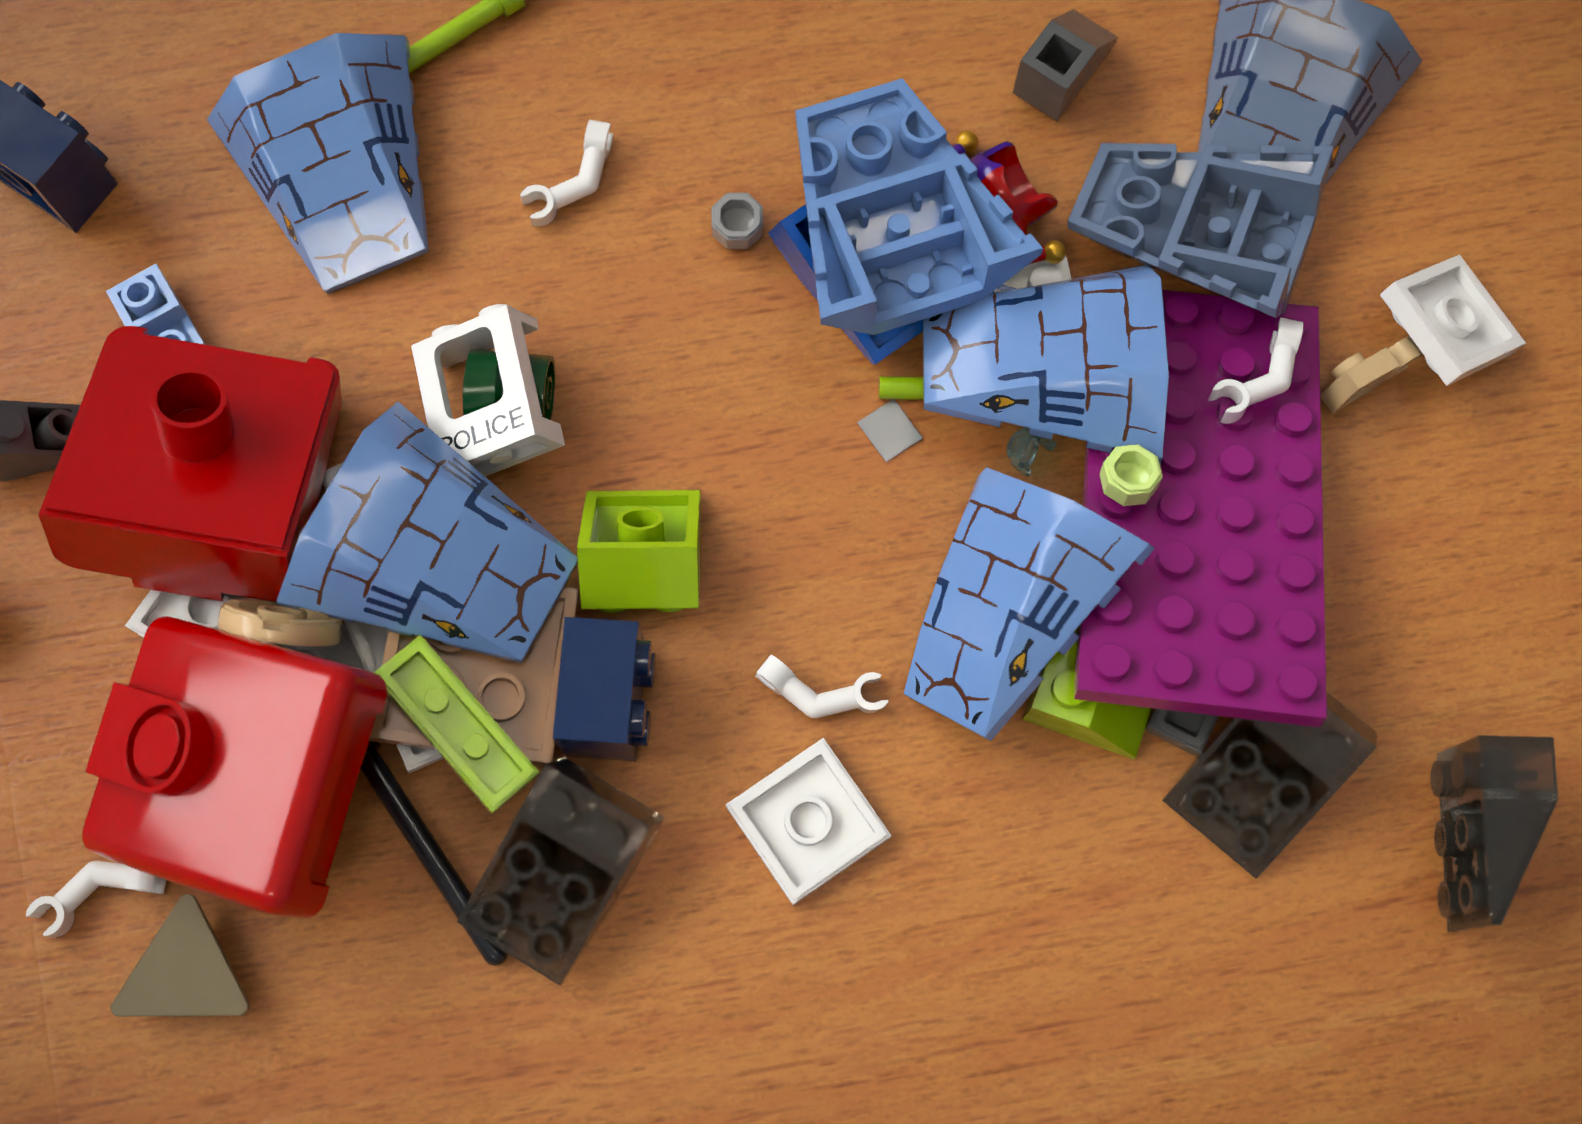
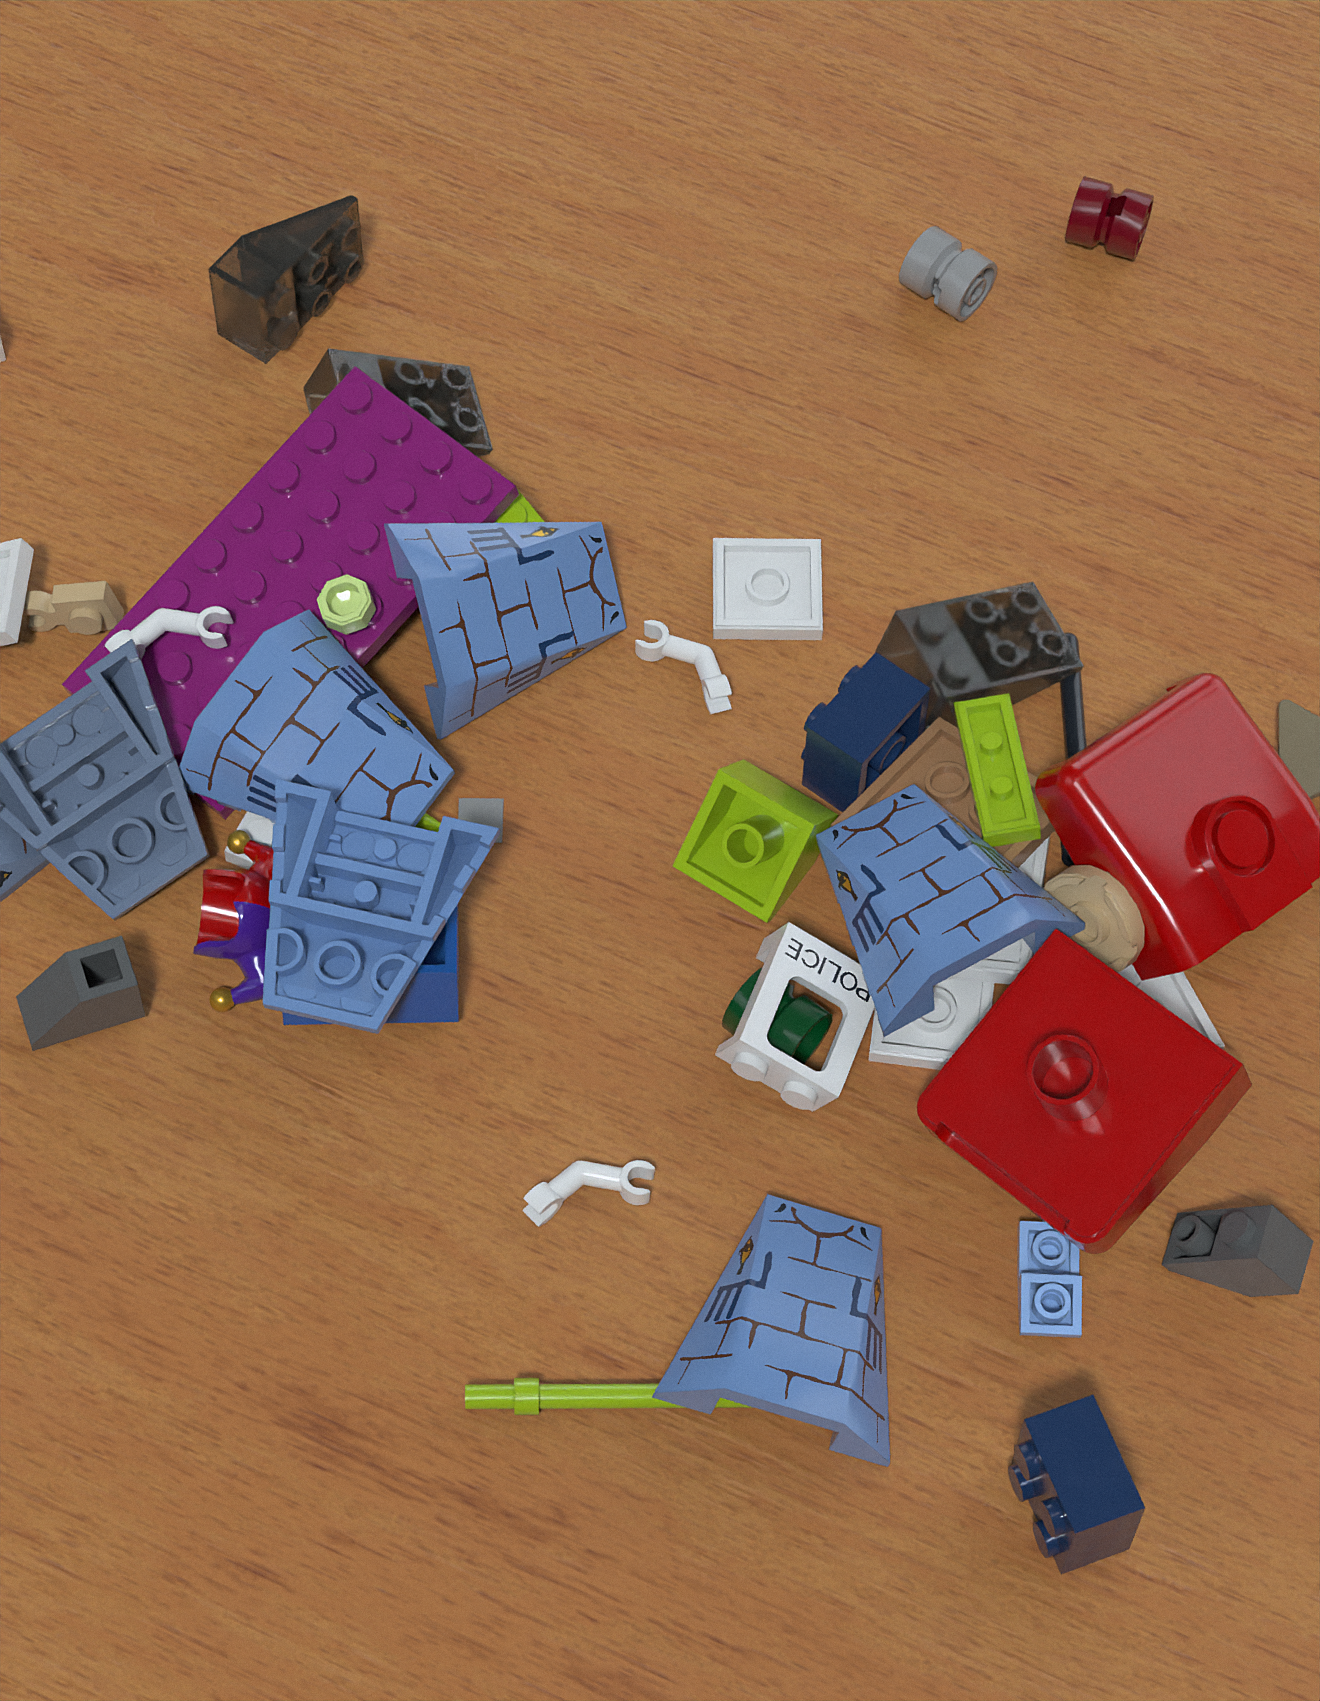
camera: 145 degrees left, 15 degrees down
(737, 220) = (475, 1051): light grey tile -> none

